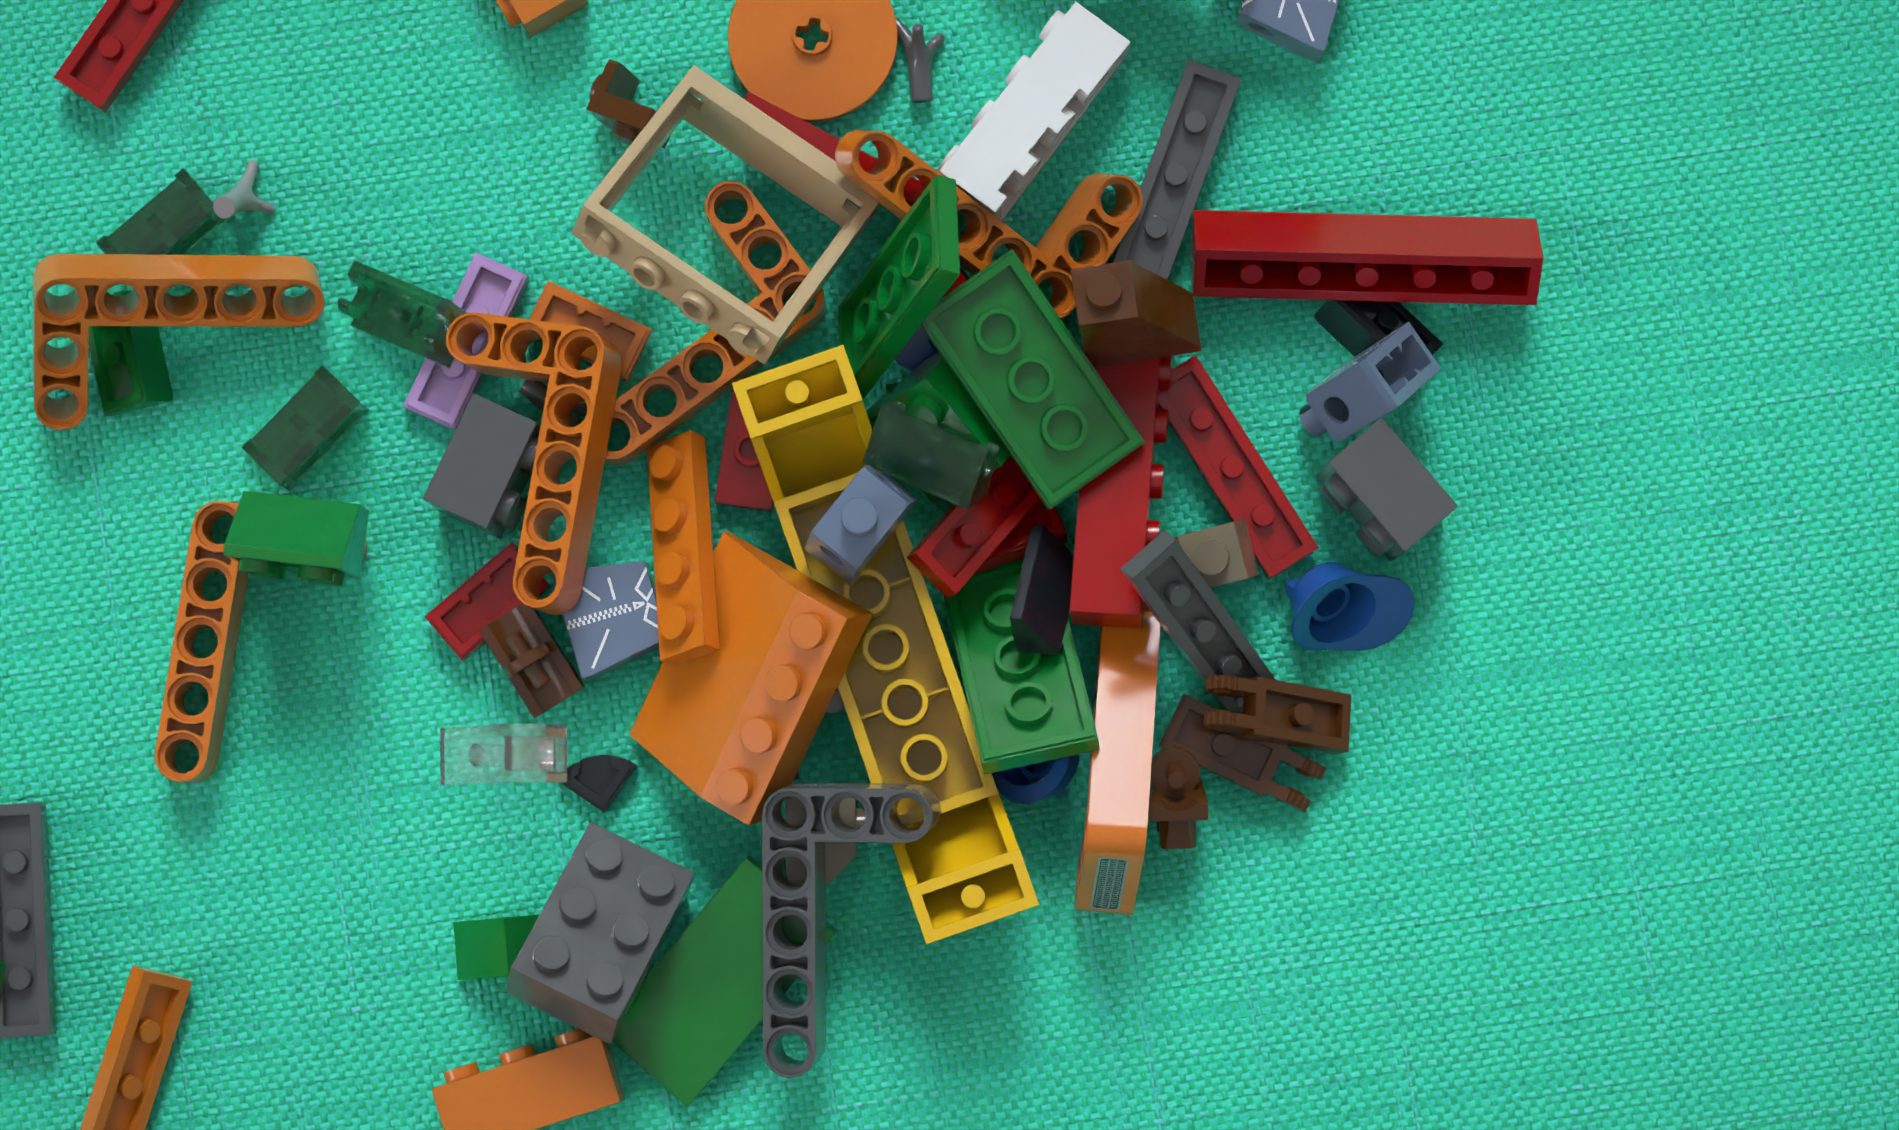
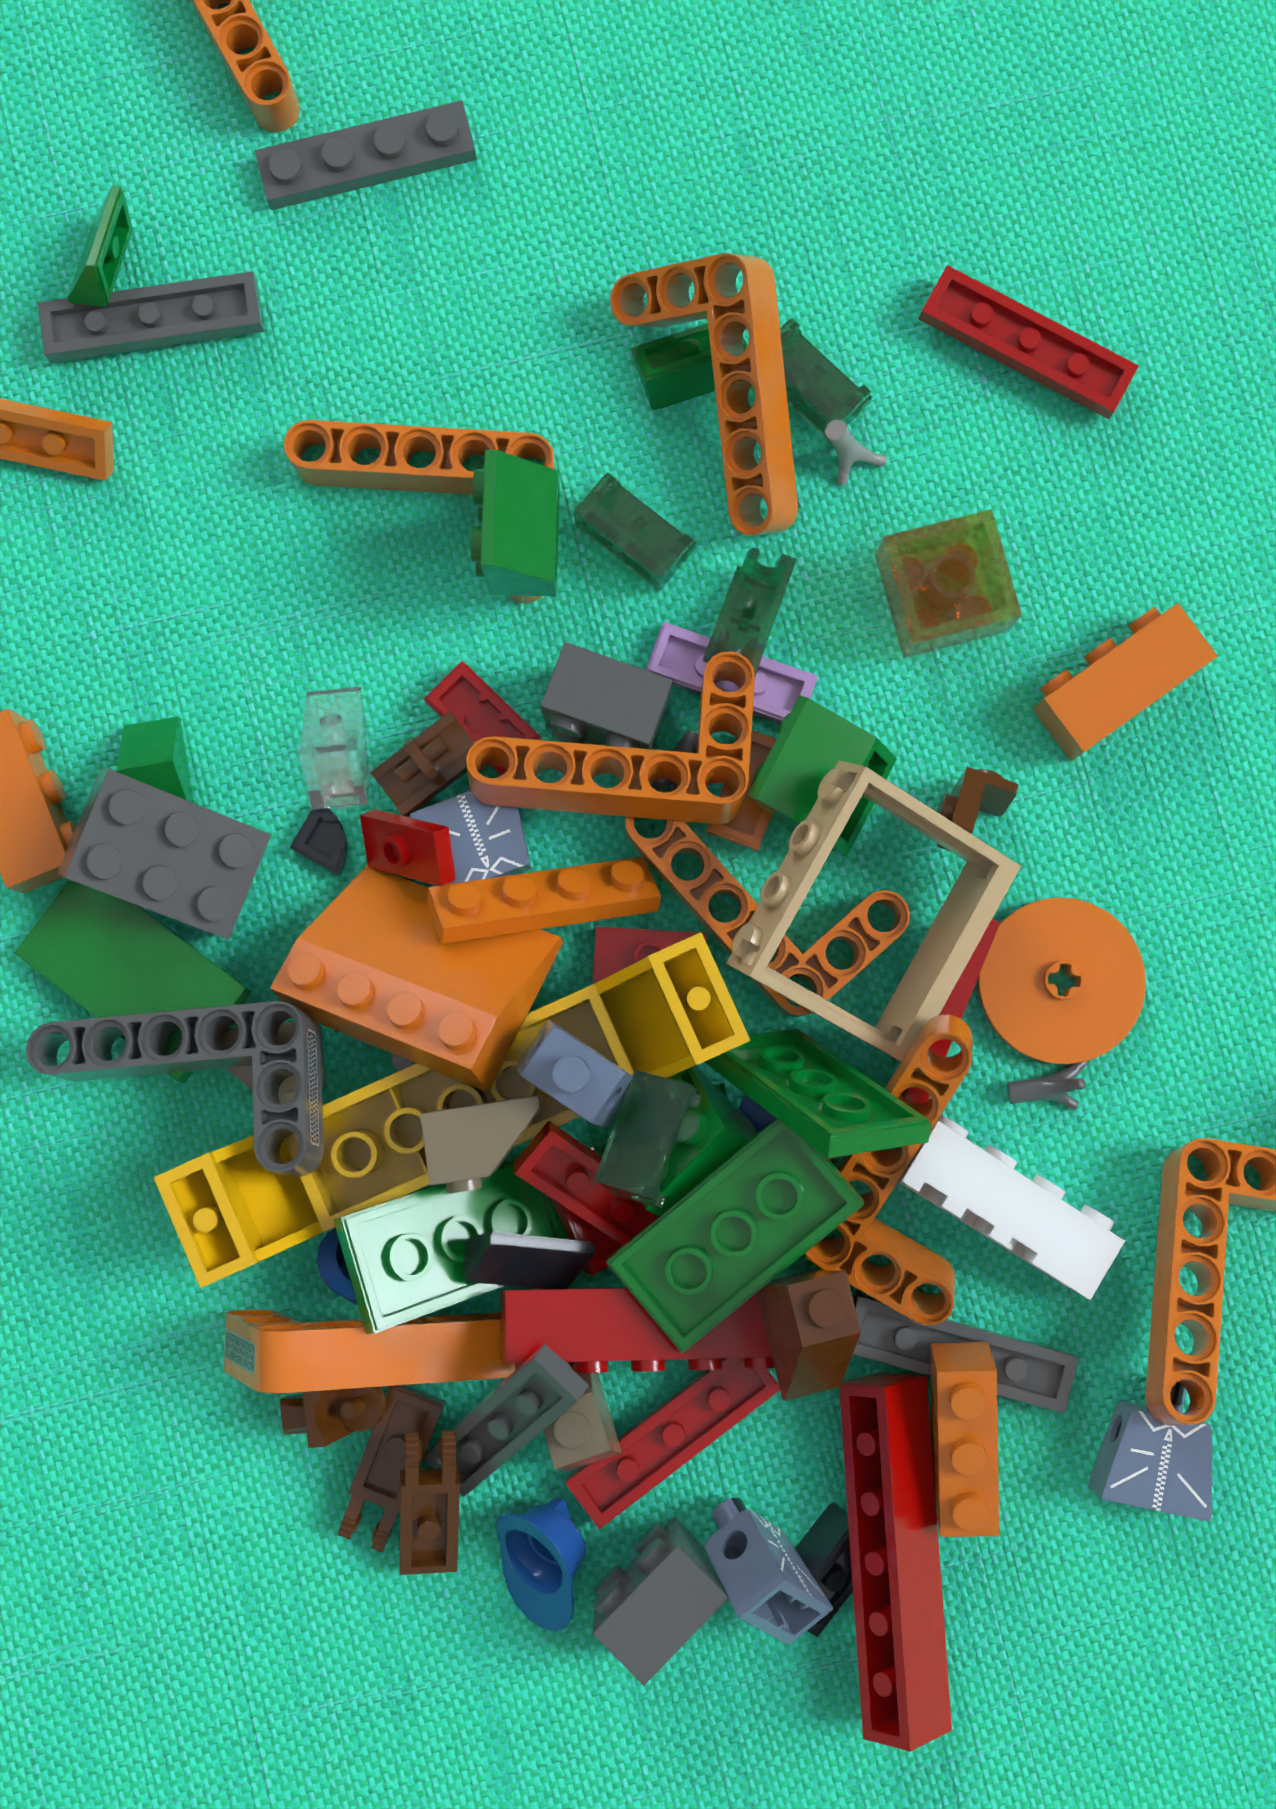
camera: 85 degrees right, 0 degrees up
(394, 110) = (947, 583): none -> brick
(560, 268) = (805, 751): none -> green slope
(616, 683) = (408, 847): none -> red plate
(918, 628) = (474, 1139): none -> dark tan slope
(1254, 177) = (965, 1439): none -> orange brick

